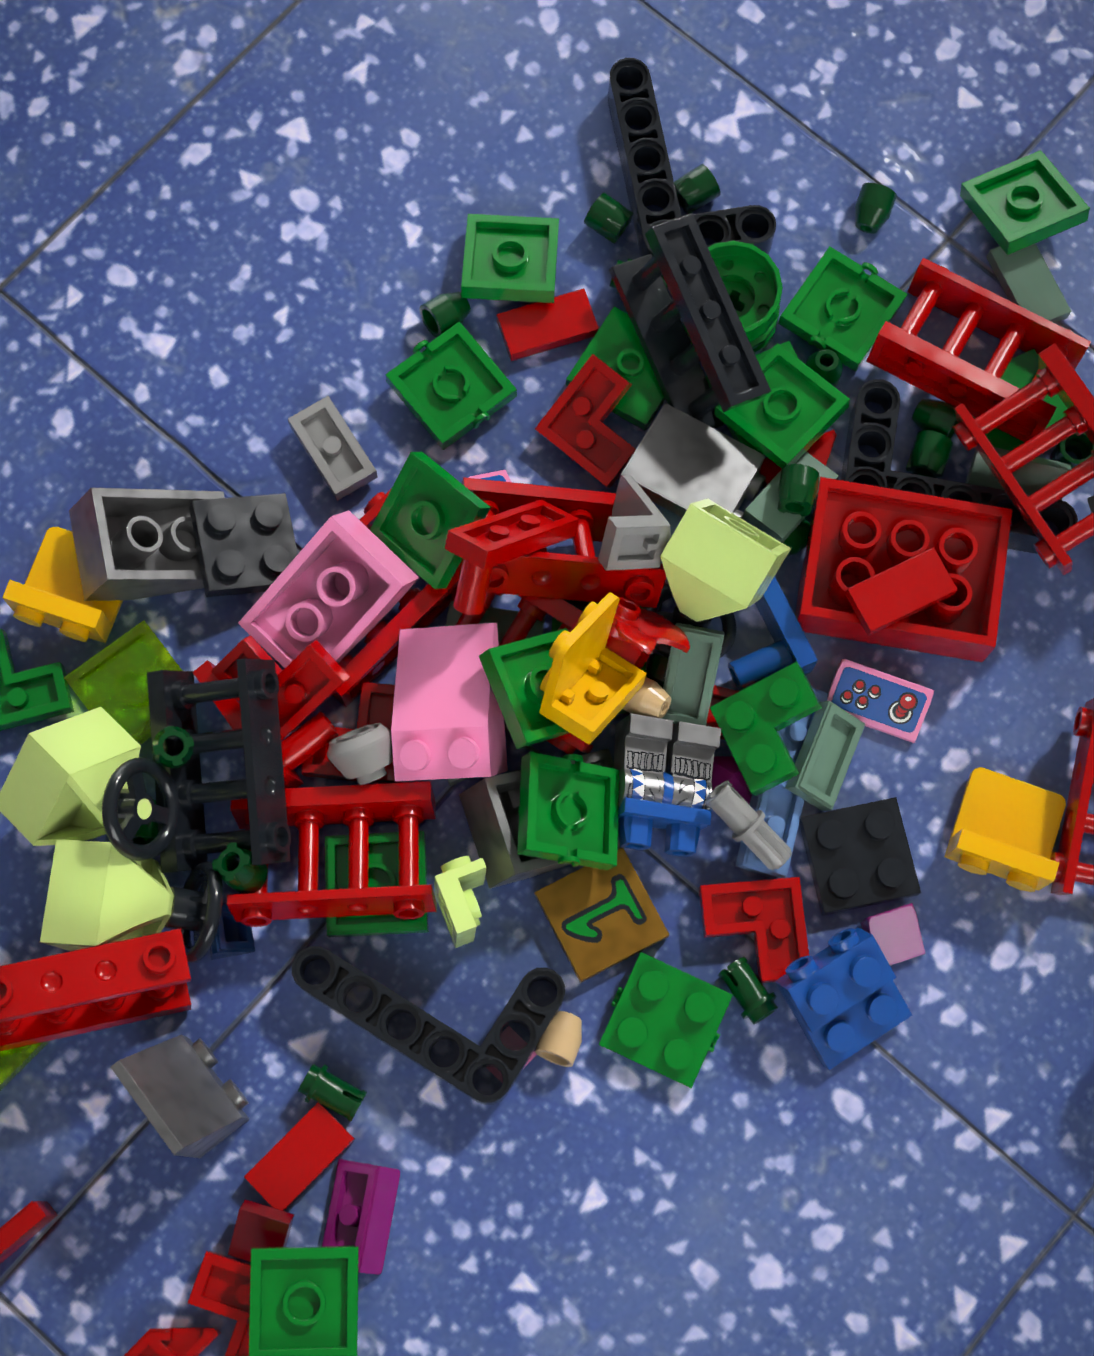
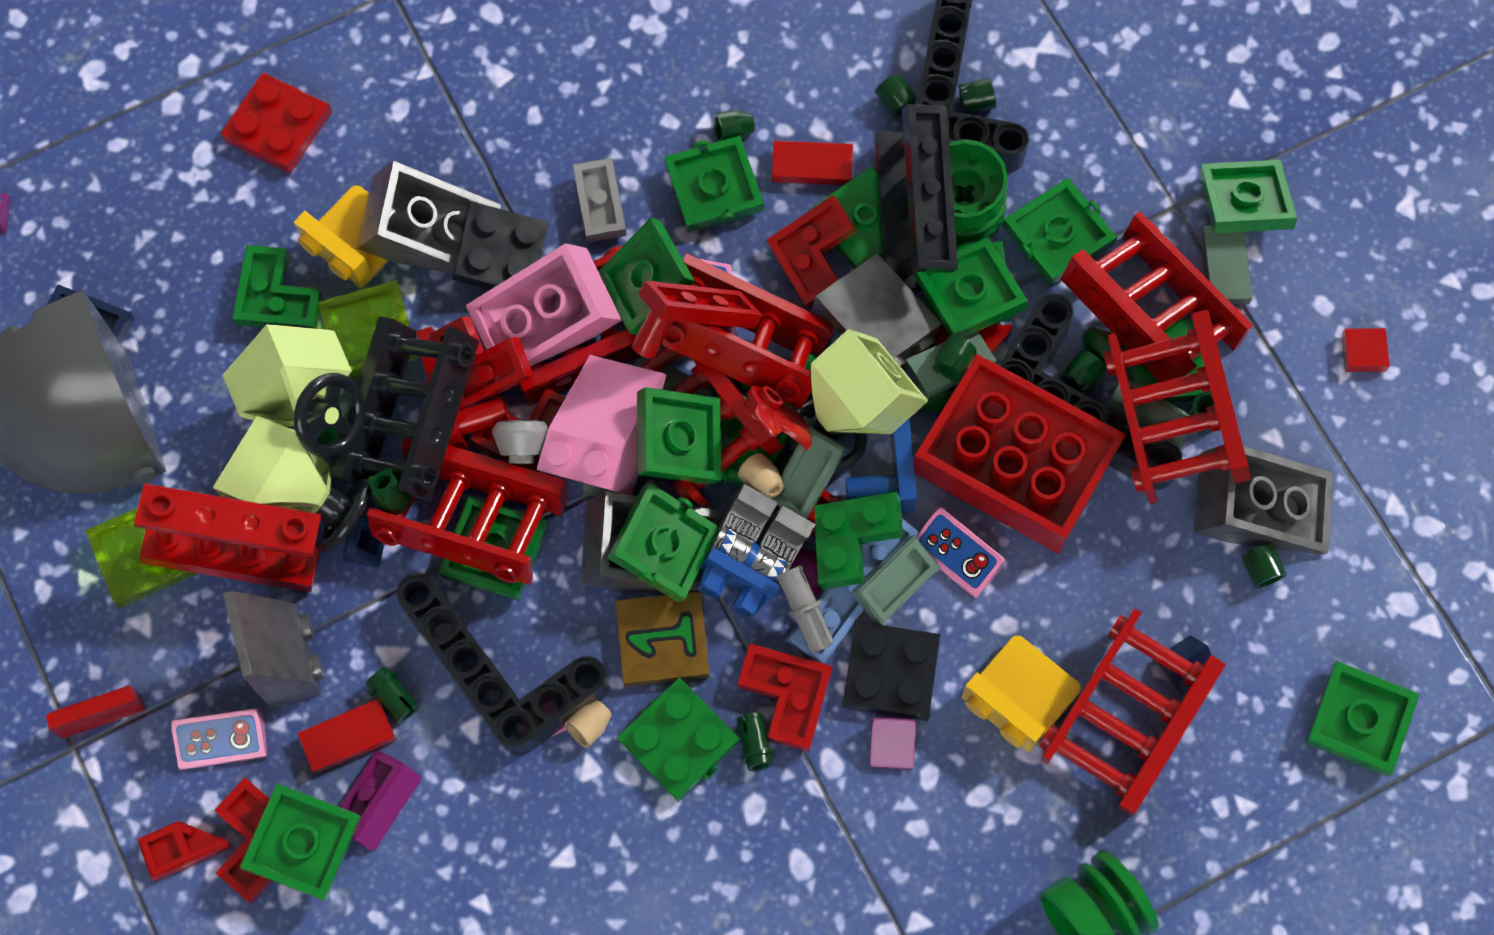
camera: 25 degrees right, 5 degrees down
(158, 1218) = (219, 738): none -> slope
(165, 759) = (378, 389): dark green hose -> none
(259, 1228) = (293, 773): dark red tile -> none
(457, 899) = (551, 567): yellowish green bracket -> none
(510, 258) = (802, 100): green plate -> none
(585, 678) = (712, 435): yellow bracket -> none
(635, 531) = (800, 342): light grey bracket -> none
(829, 358) = (1027, 279): dark green hose -> none
(843, 996) = (829, 773): blue plate -> none
(873, 207) = (1120, 159): dark green hose -> none
(901, 591) = (1003, 465): red tile -> none

